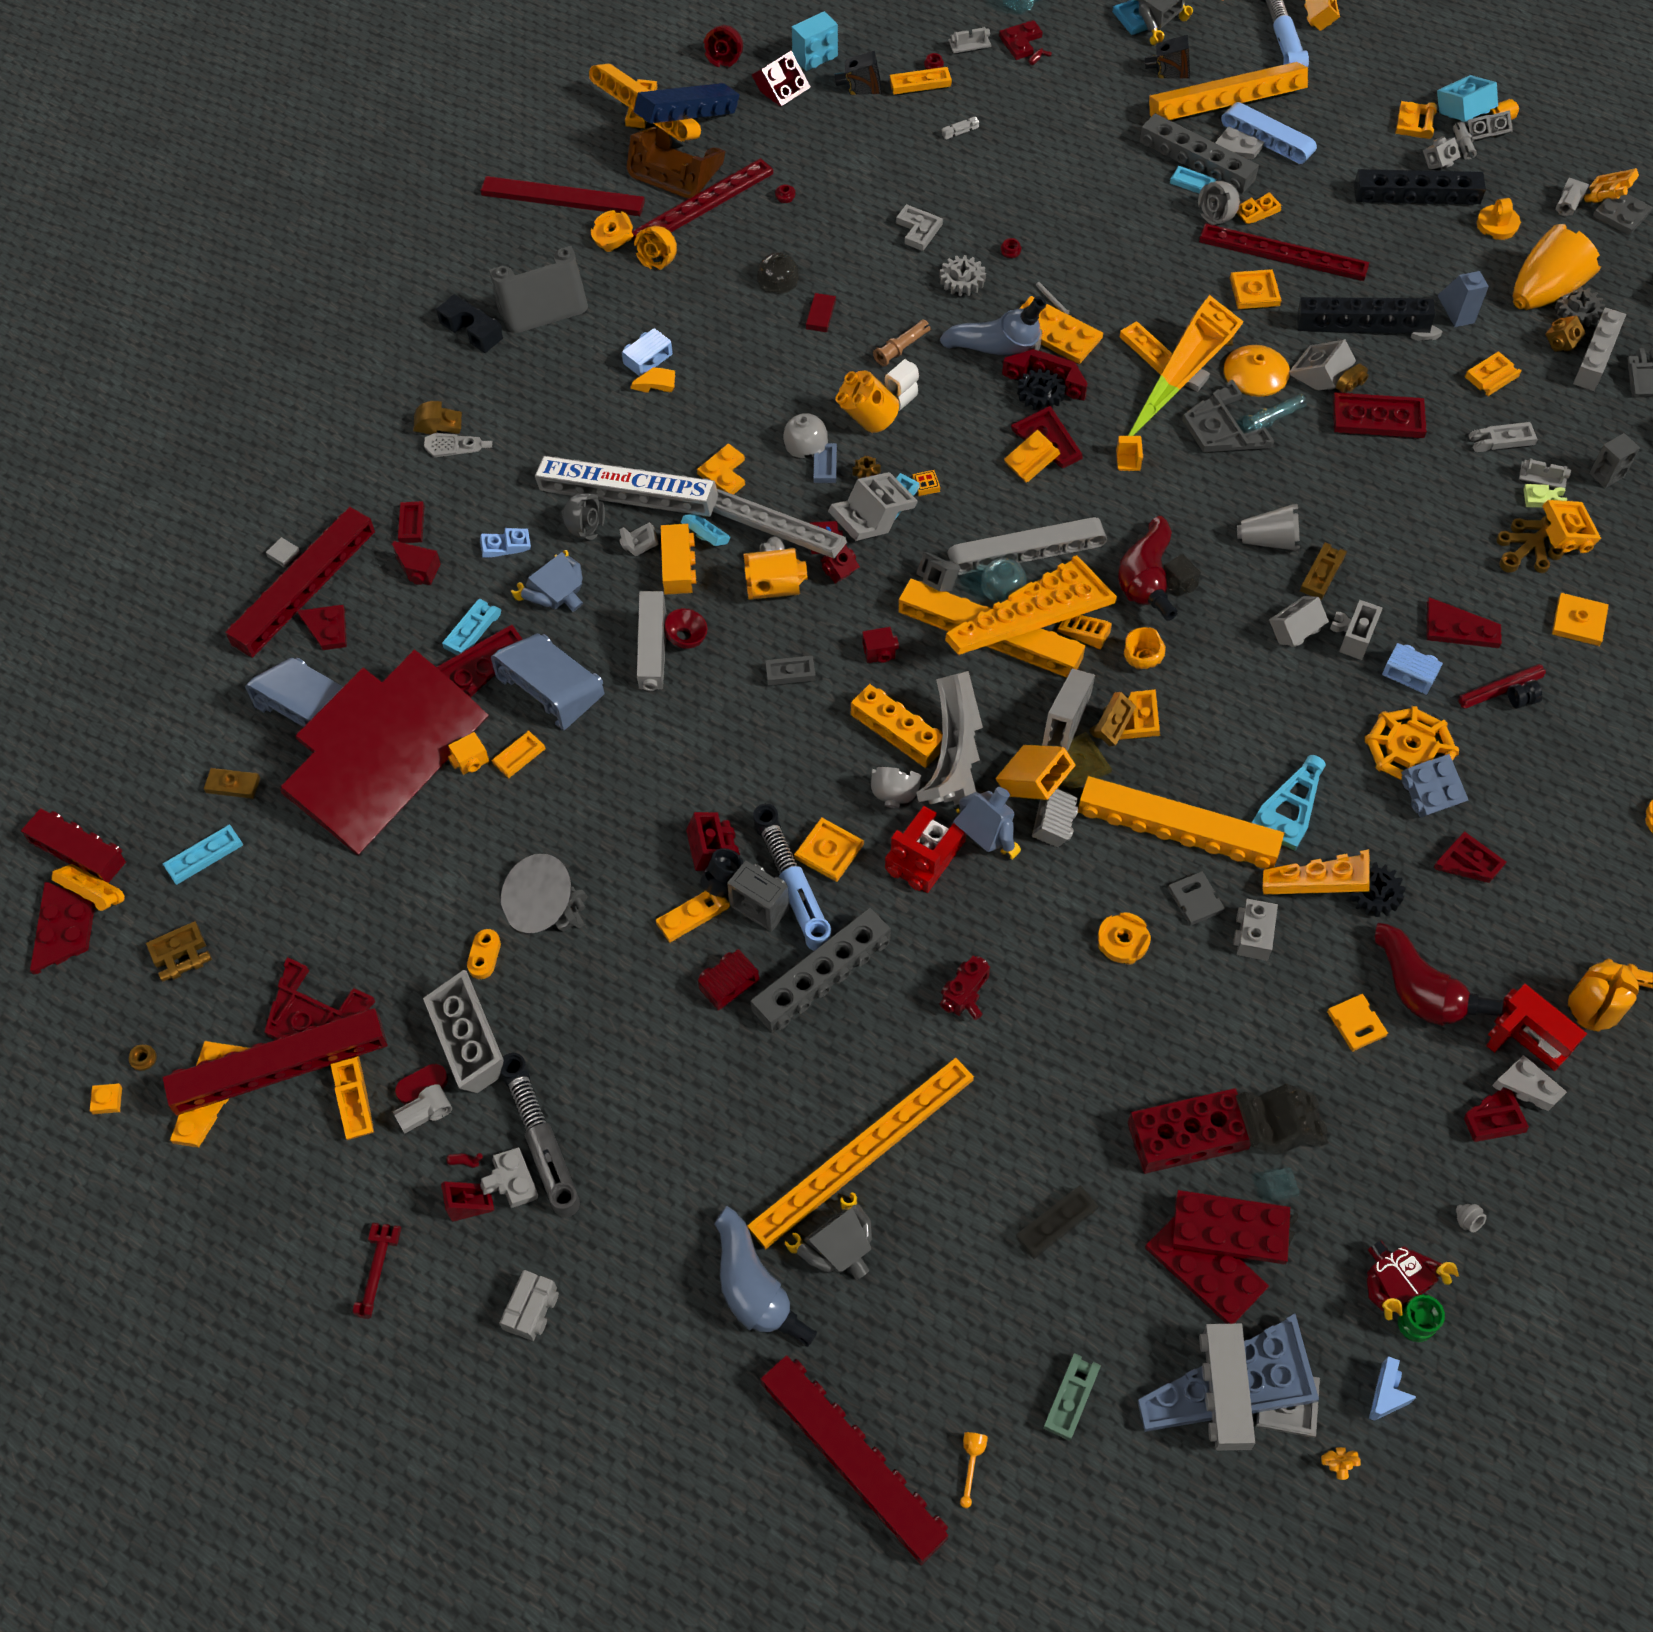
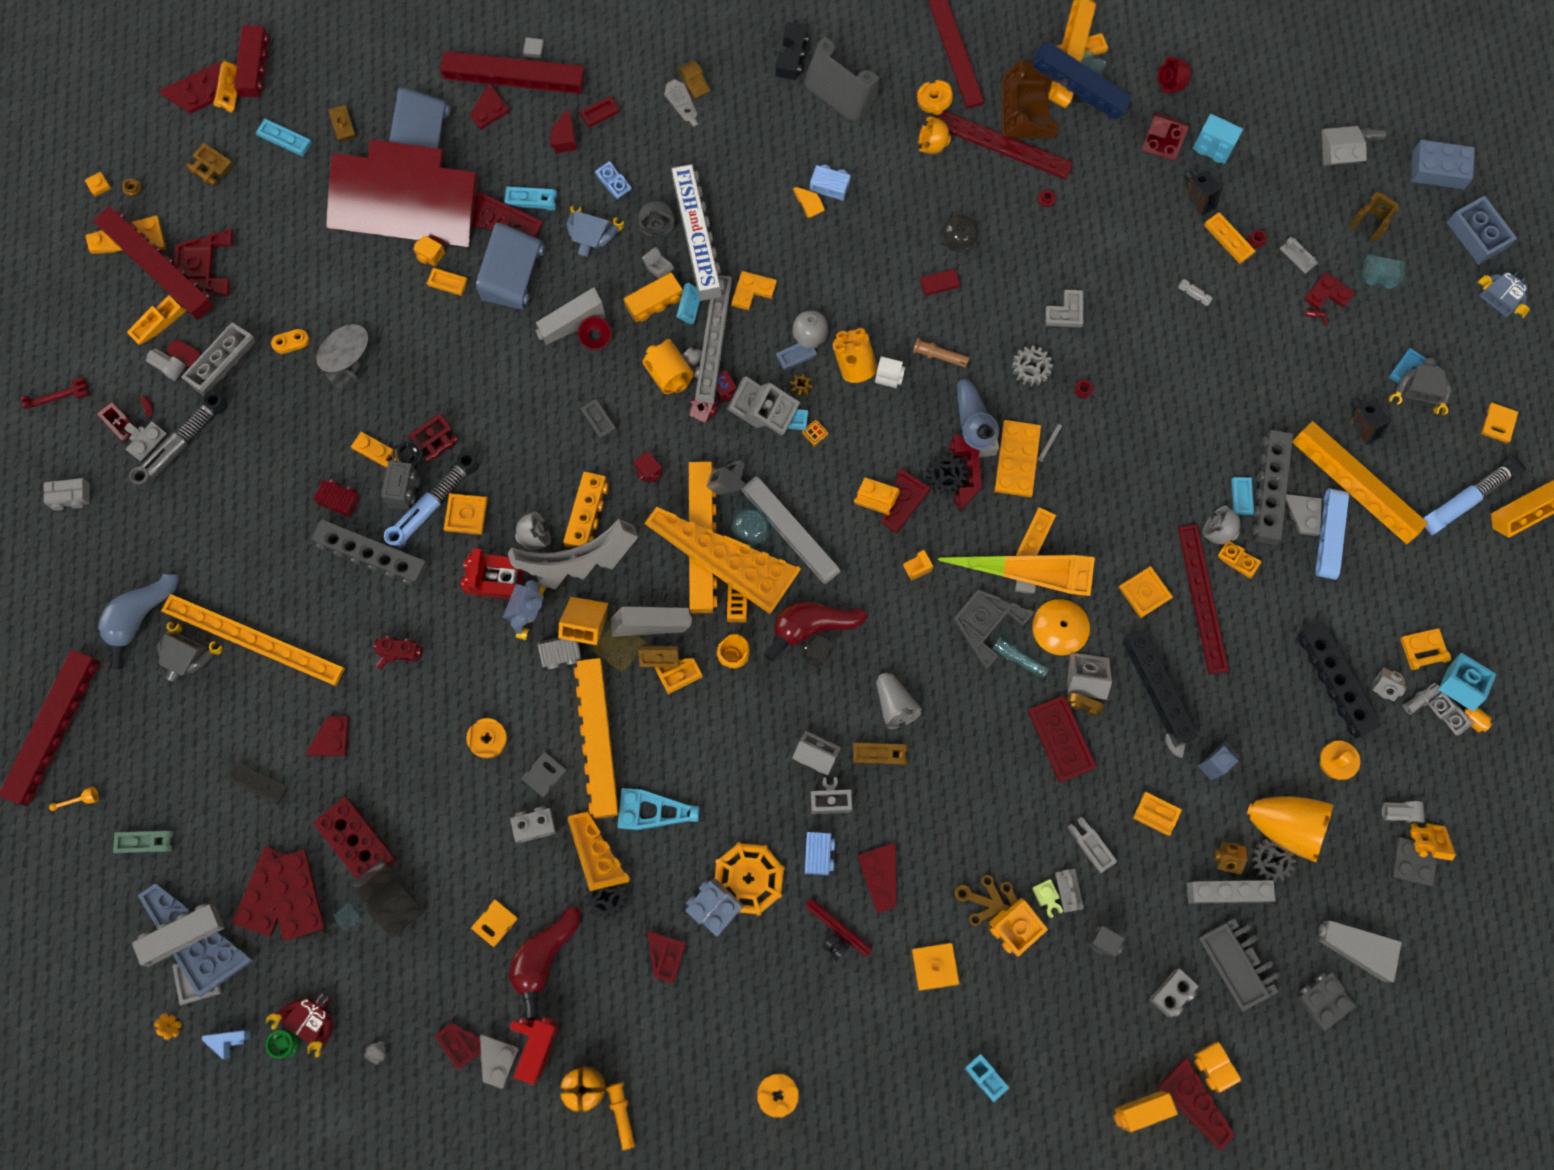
camera: 60 degrees right, 15 degrees up
(1038, 1111) = (331, 738): none -> dark red wing

